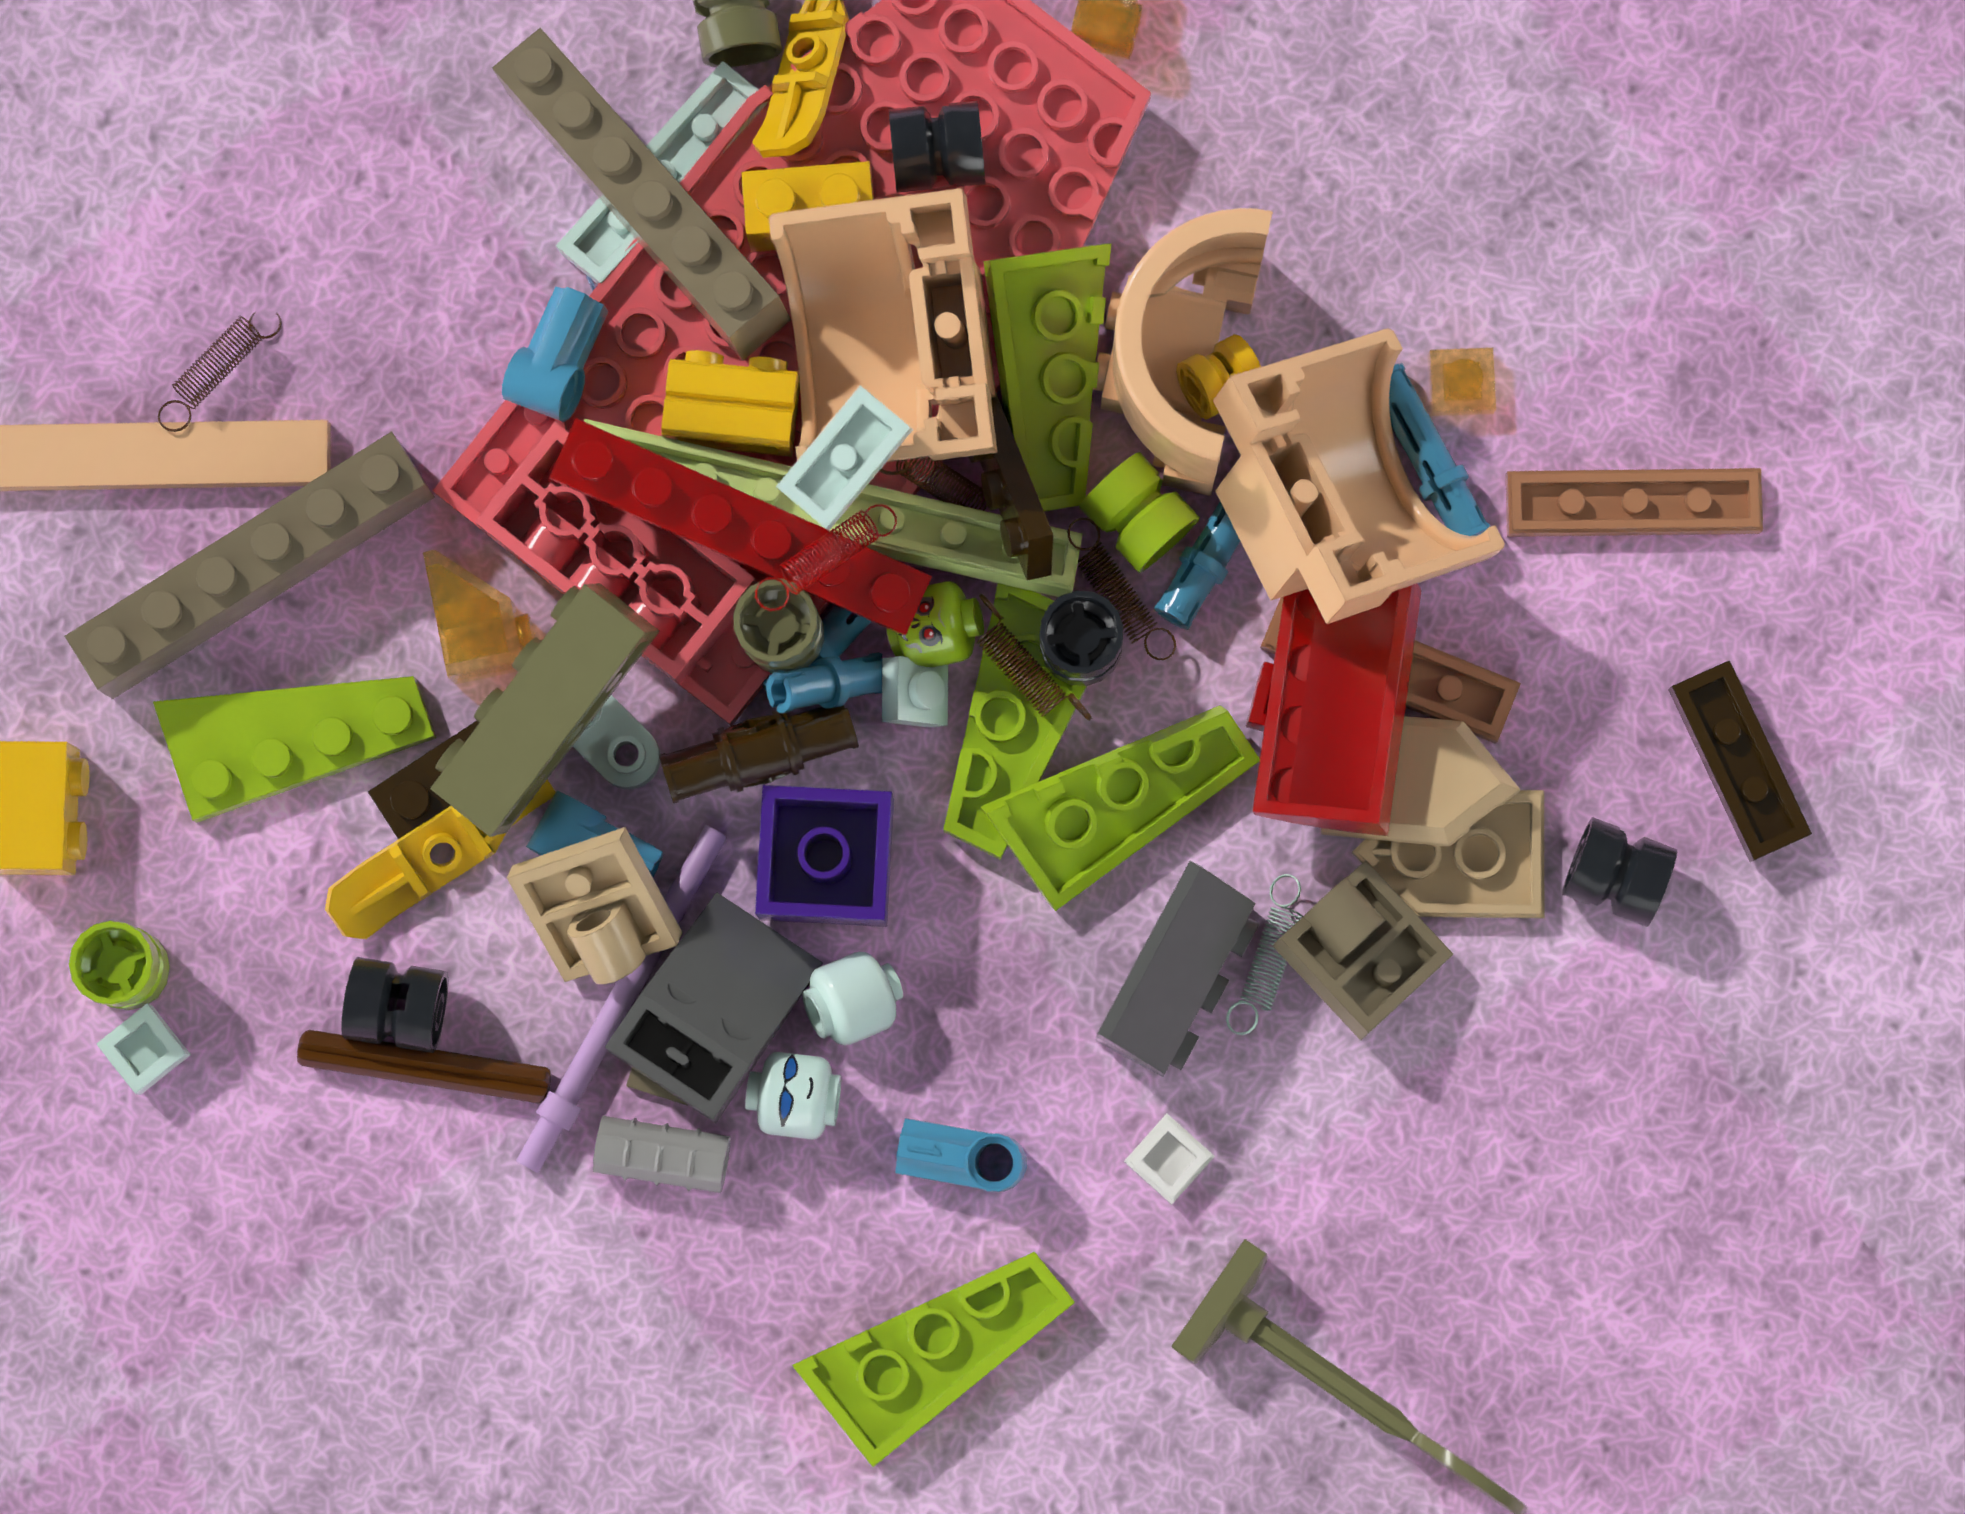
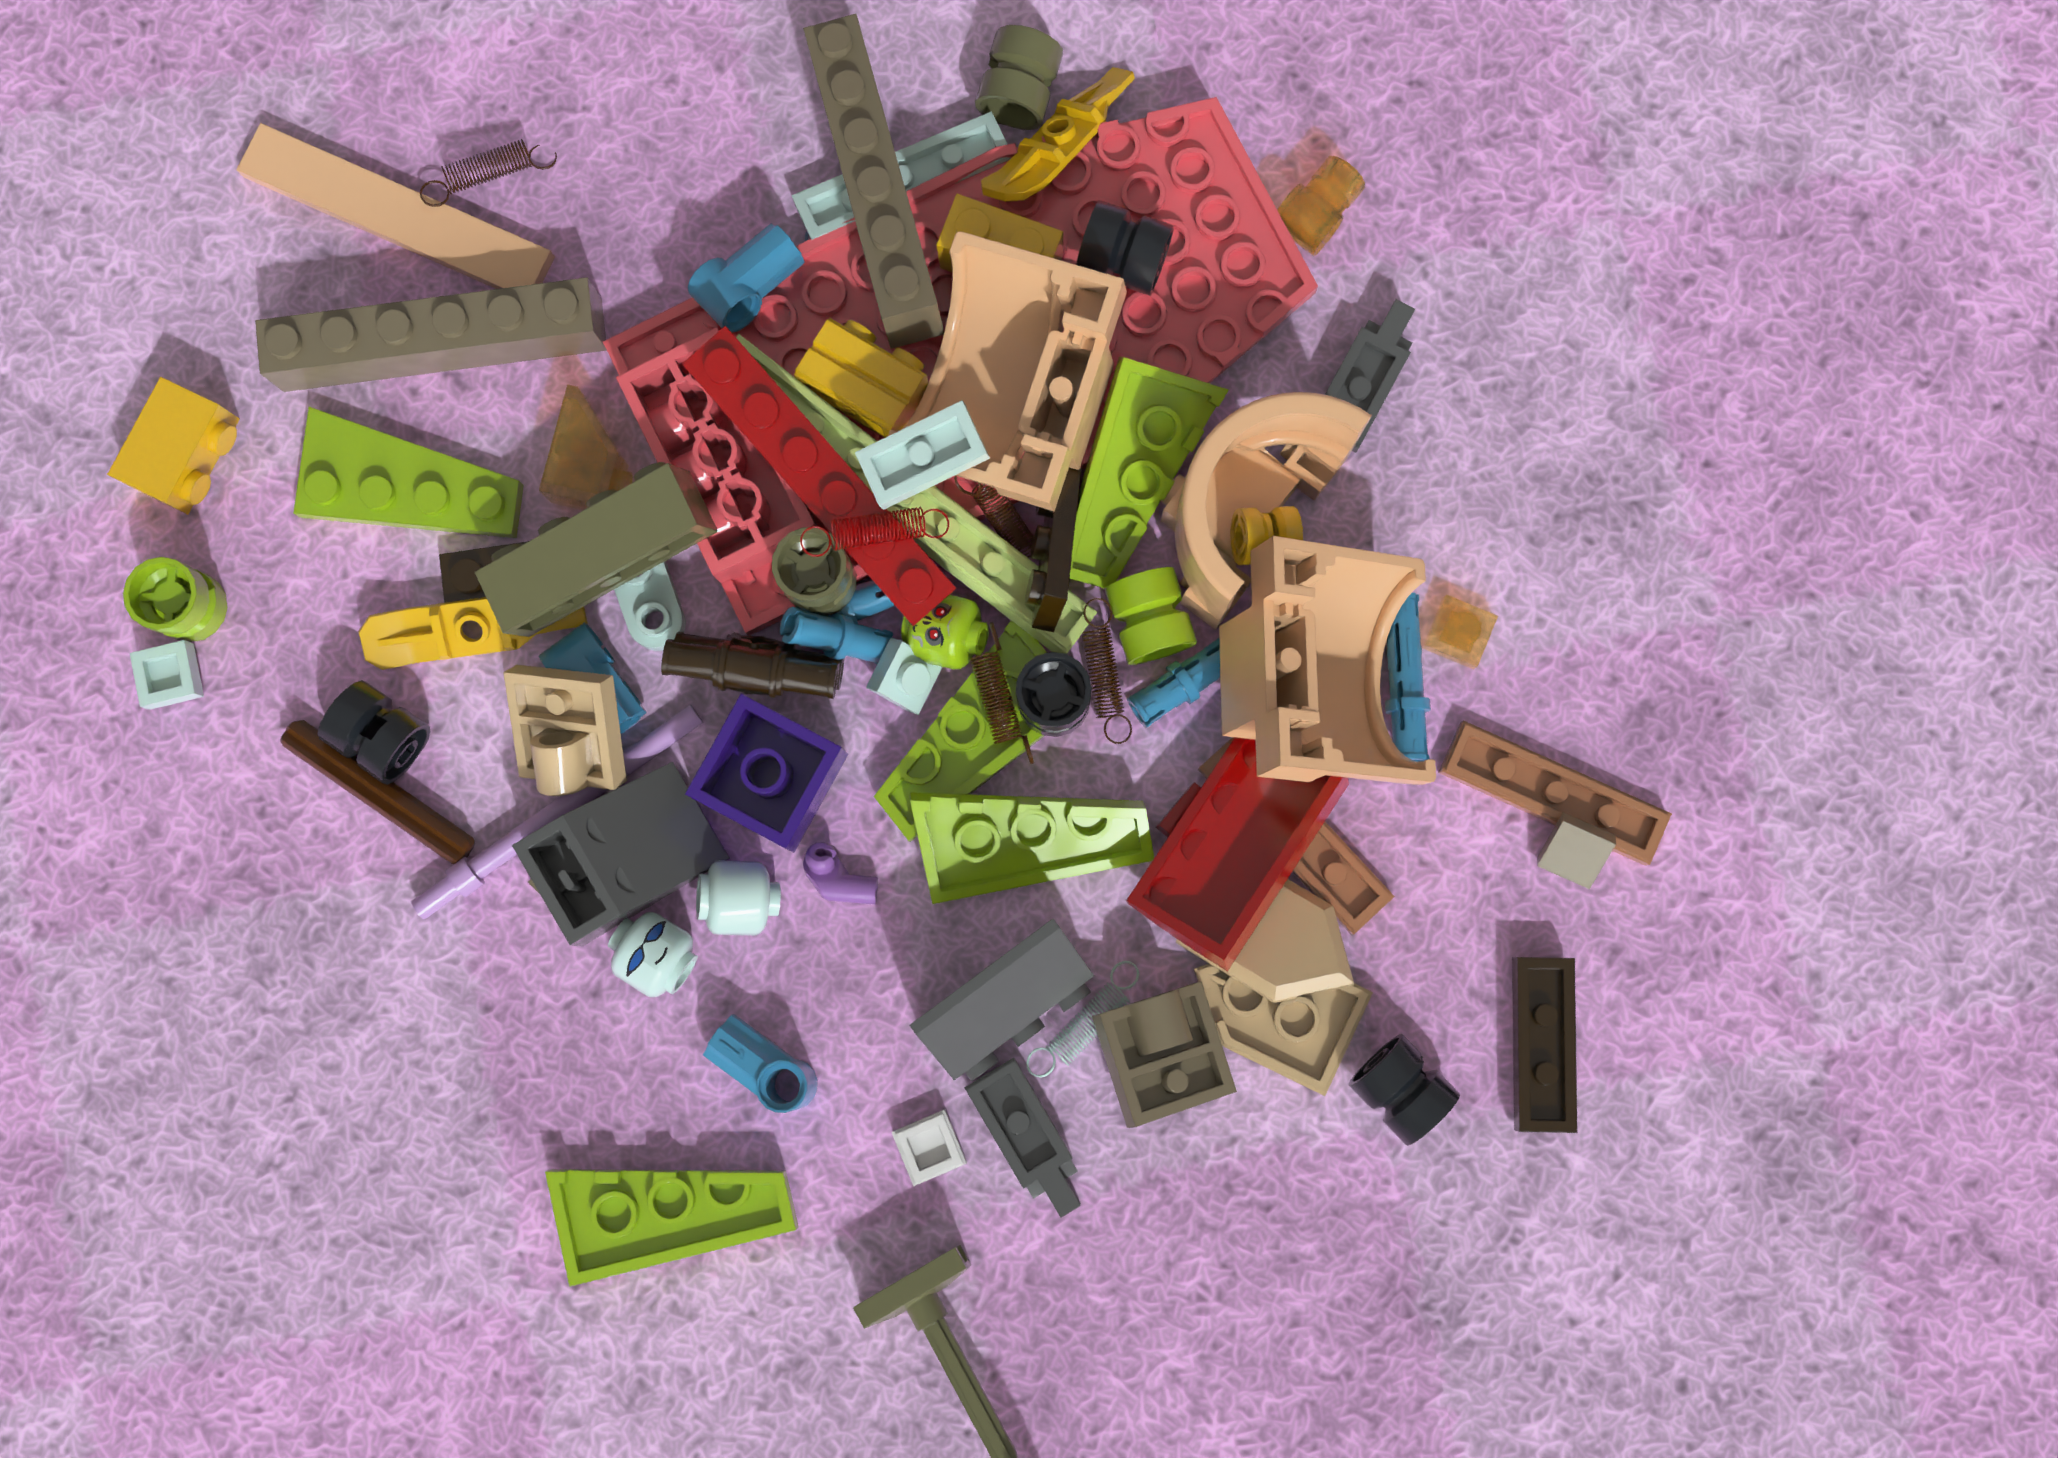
camera: 25 degrees right, 0 degrees up
(661, 1154) = (526, 951): light grey axle -> none
(939, 934) = (833, 879): none -> medium lavender arm
(1244, 149) = (1373, 364): none -> dark grey hinge
(1261, 1098) = (1025, 1134): none -> dark grey hinge
(1682, 550) = (1576, 850): none -> tile

